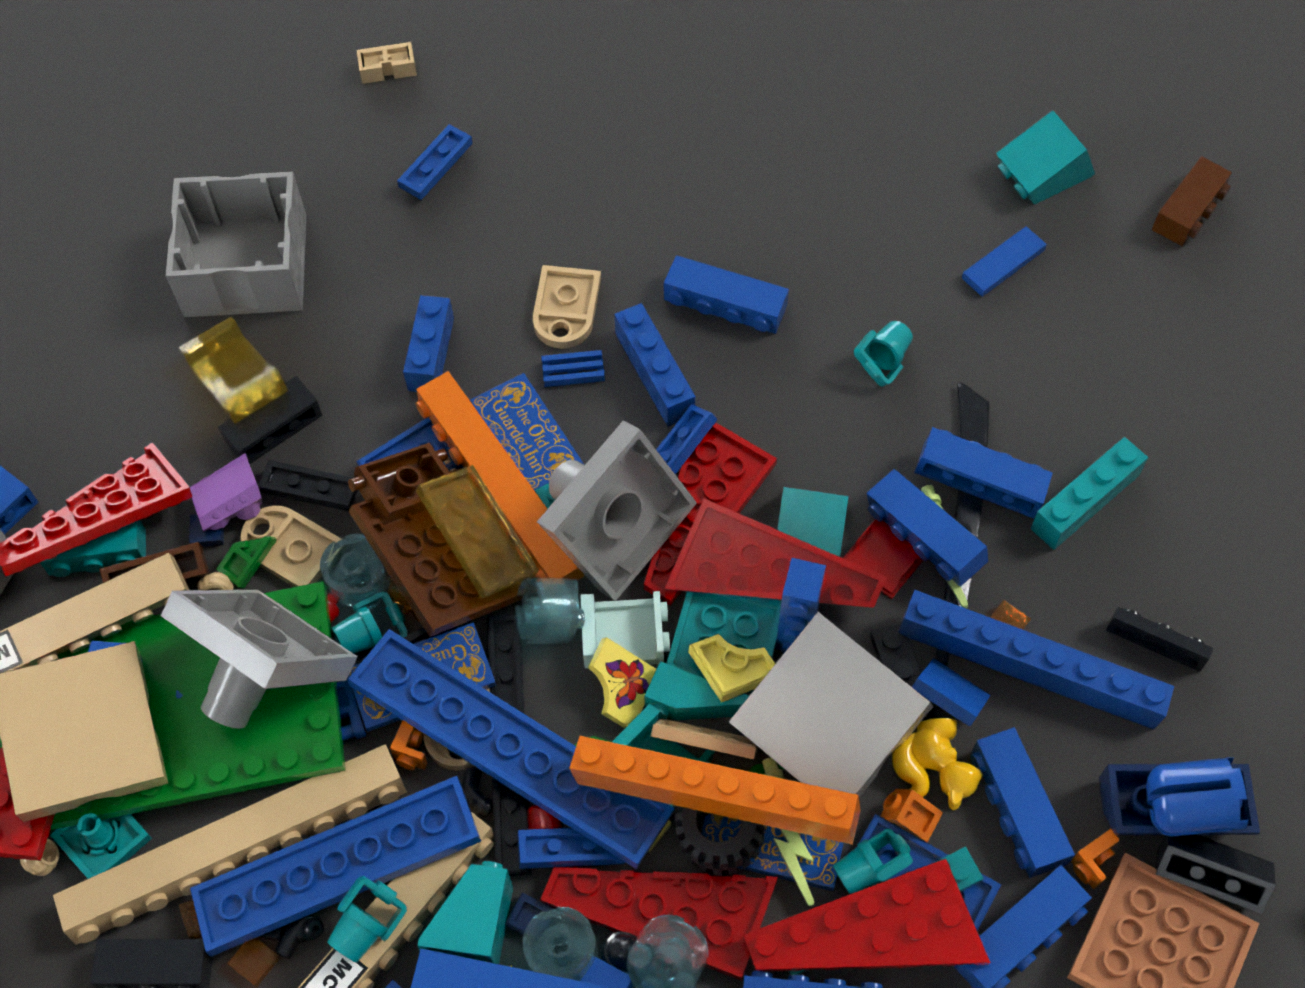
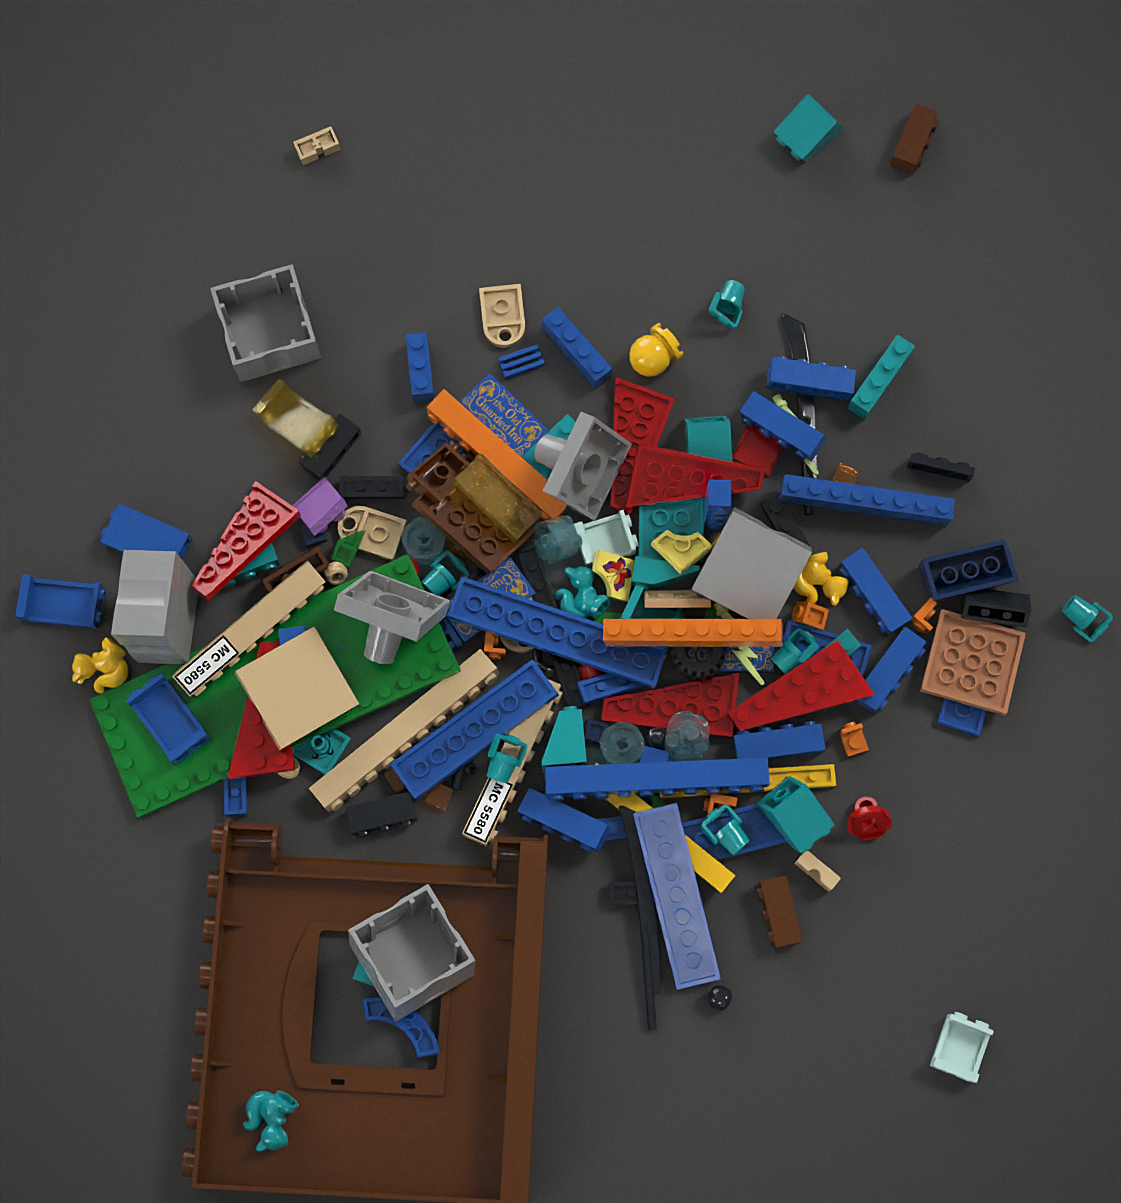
camera: 15 degrees left, 15 degrees up
(435, 162) = (378, 221): blue plate -> none
(570, 711) = (586, 602): none -> teal animal
(685, 436) = (610, 399): blue tile -> none
(725, 294) = (611, 283): blue brick -> none
(760, 390) = (652, 353): none -> yellow tile
(951, 692) = (819, 533): blue tile -> none
(1004, 261) = (794, 213): blue tile -> none
(1196, 797) = (977, 570): blue cylinder -> none

